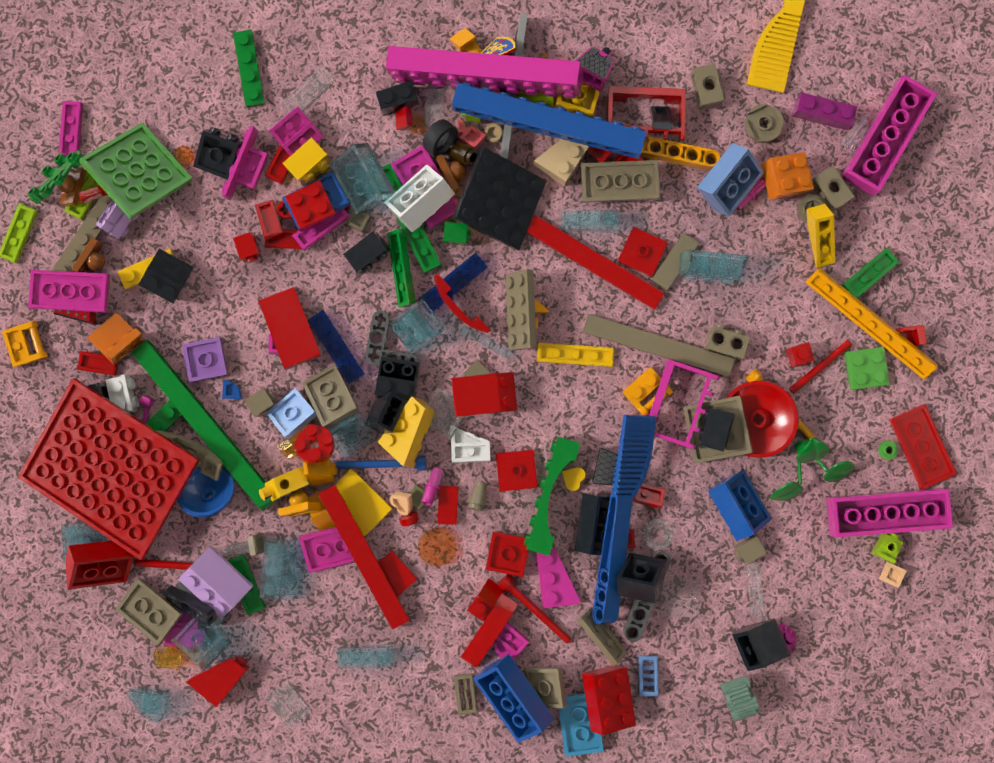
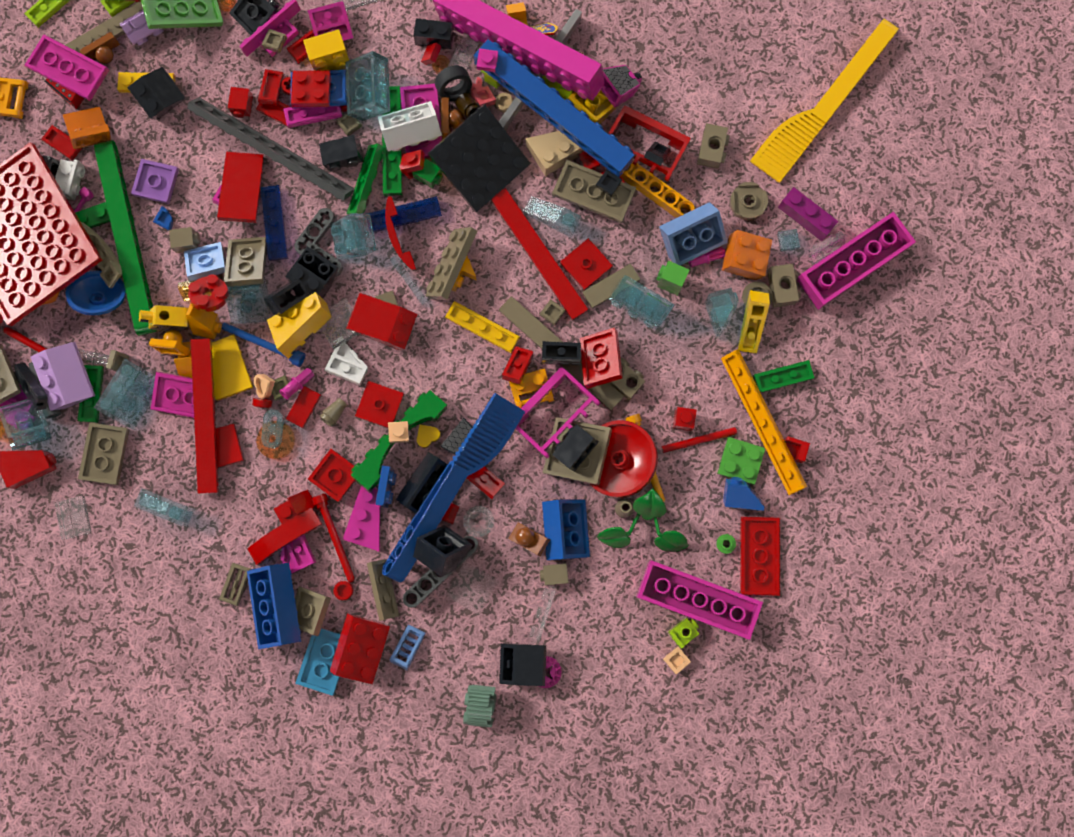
camera: 25 degrees right, 5 degrees down
(251, 174) = (274, 41): none -> dark tan tile
(287, 633) = (103, 453): none -> dark tan plate
(297, 278) = (270, 148): none -> dark grey plate
(431, 539) = (272, 429): none -> clear light blue plate
(438, 232) = (412, 162): none -> red bracket
(468, 104) = (487, 60): none -> dark pink plate
(550, 489) = (398, 432): none -> light nougat plate
(560, 537) = (384, 494): none -> blue plate
(566, 653) = (343, 590): none -> red tile
(626, 376) = (517, 365): none -> red plate
(632, 168) = (608, 183): none -> black plate
(632, 311) = (552, 312): none -> dark tan tile
(662, 347) = (561, 353): none -> black brick
(700, 335) = (601, 358): none -> plate
(711, 529) = (529, 539): none -> dark orange tile
(730, 229) = (672, 277): none -> bright green brick
(778, 460) = (620, 512): none -> dark tan cone
(789, 239) = (720, 309): none -> clear light blue slope
(817, 143) = (788, 240): none -> clear light blue plate
(882, 401) = (740, 495): none -> blue slope

